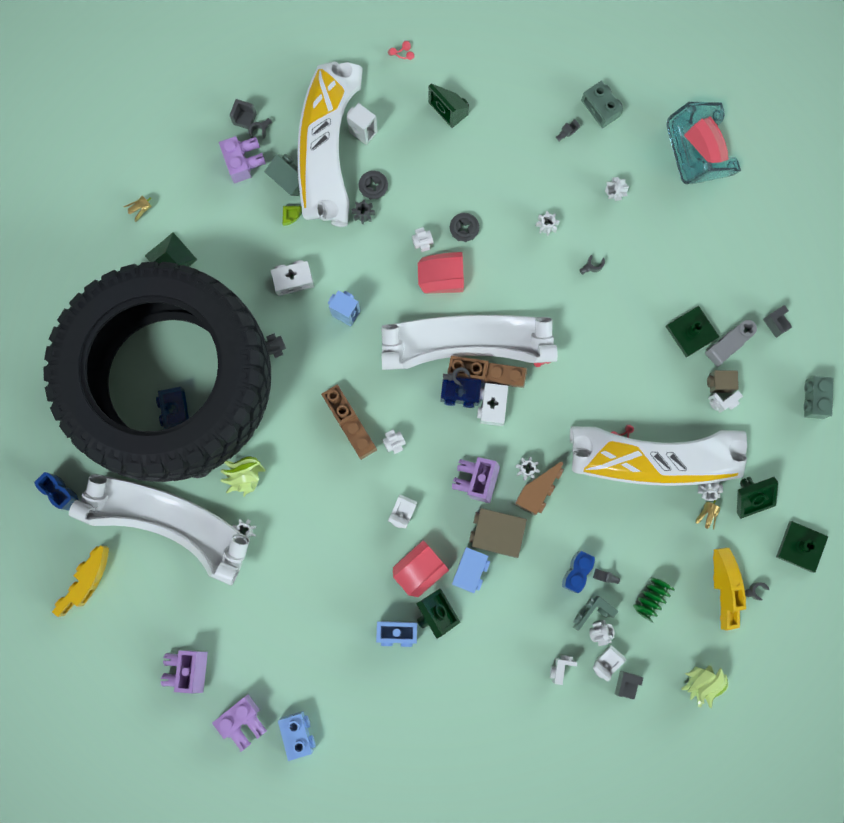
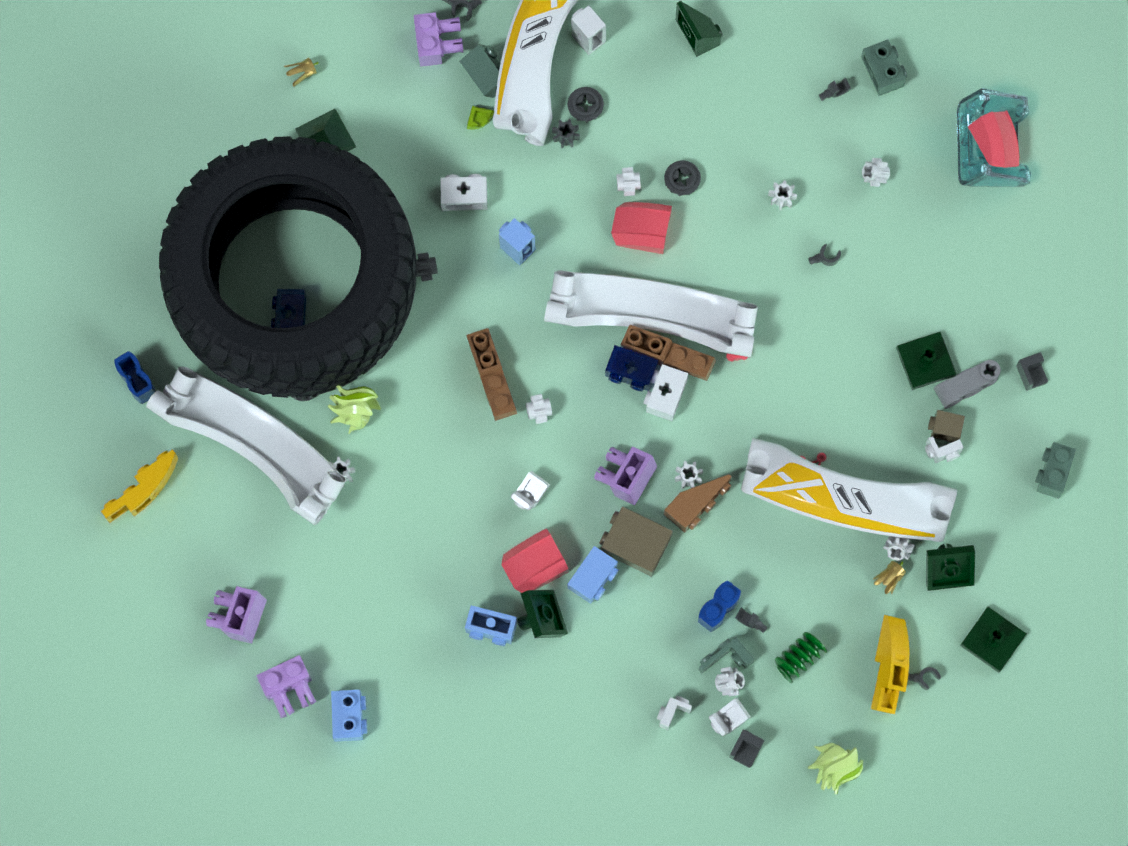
camera: 15 degrees right, 5 degrees down
(452, 376) = (624, 347): dark grey piece -> none

